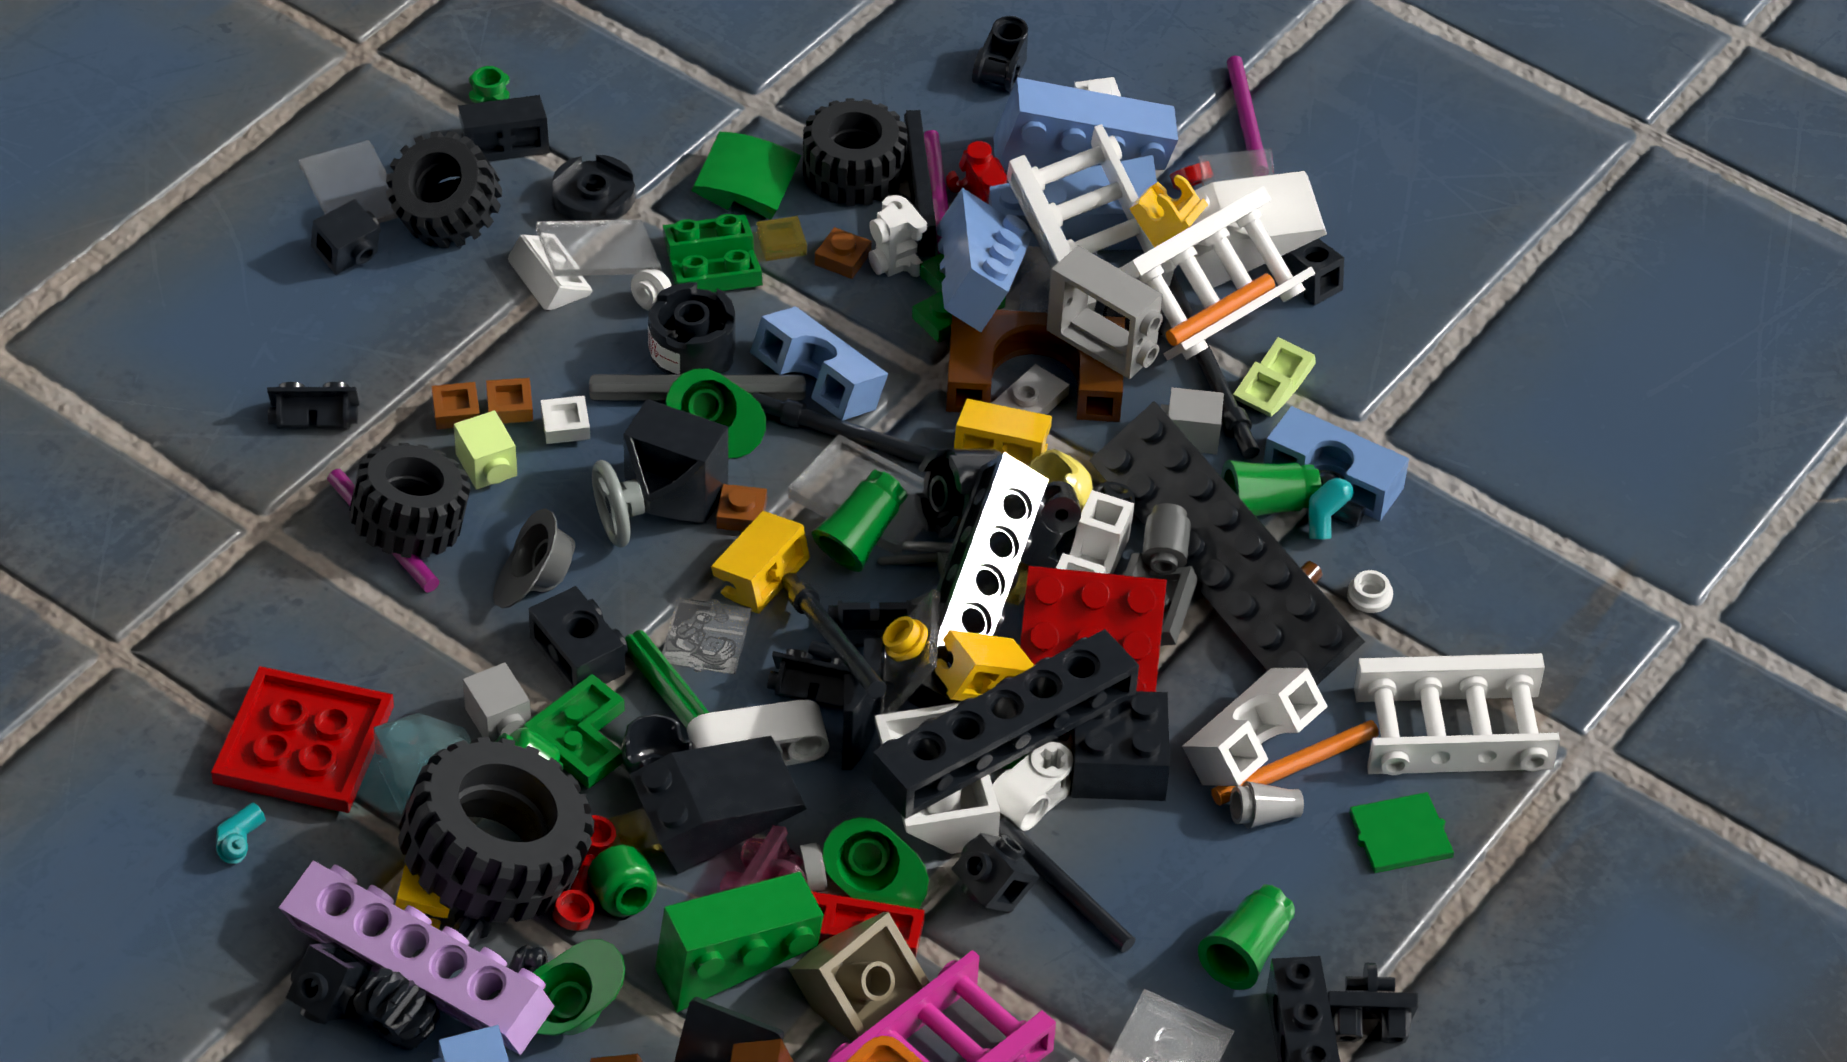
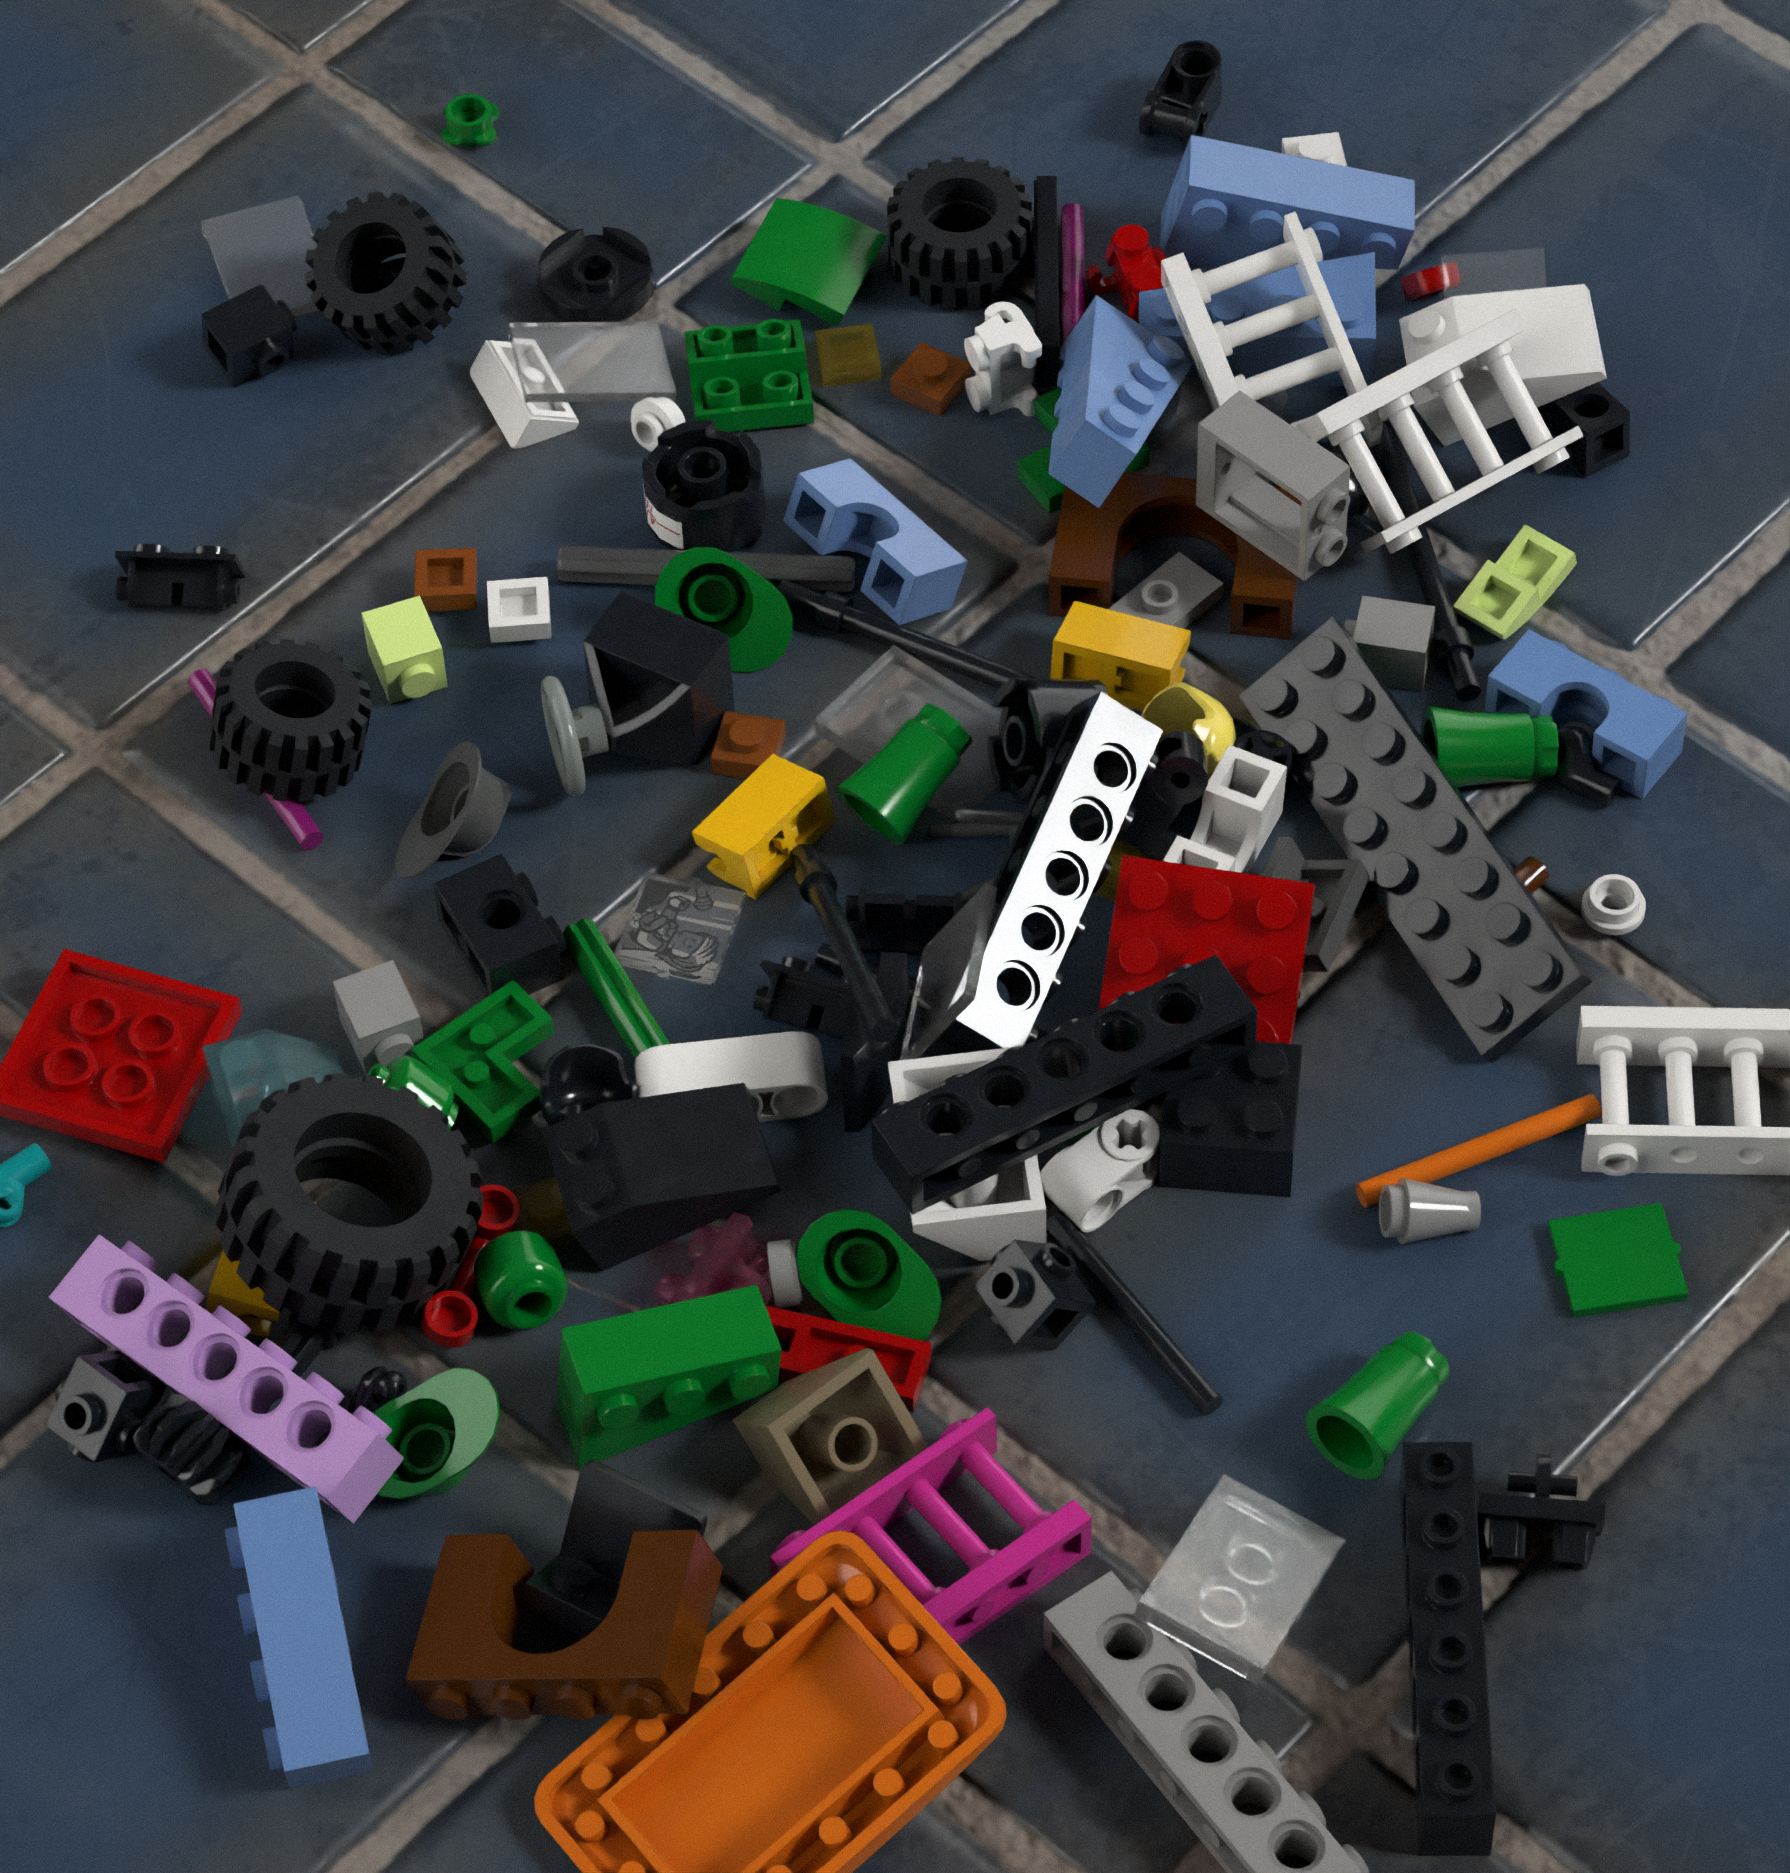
camera: 10 degrees right, 5 degrees up
(454, 403) = (370, 581): dark orange plate -> none
(506, 127) = (482, 184): black hinge -> none
(905, 638) = (936, 955): yellow plate -> none
(979, 663) = (1040, 993): yellow hinge -> none
(1164, 216) = (1373, 345): yellow hinge -> none
(1166, 538) = (1328, 818): dark grey brick -> none
(1220, 309) = (1441, 485): orange bar -> none
(1231, 743) = (1385, 1122): white arch -> none
(1244, 103) = (1520, 177): magenta bar -> none
(1324, 504) = (1561, 774): teal arm -> none

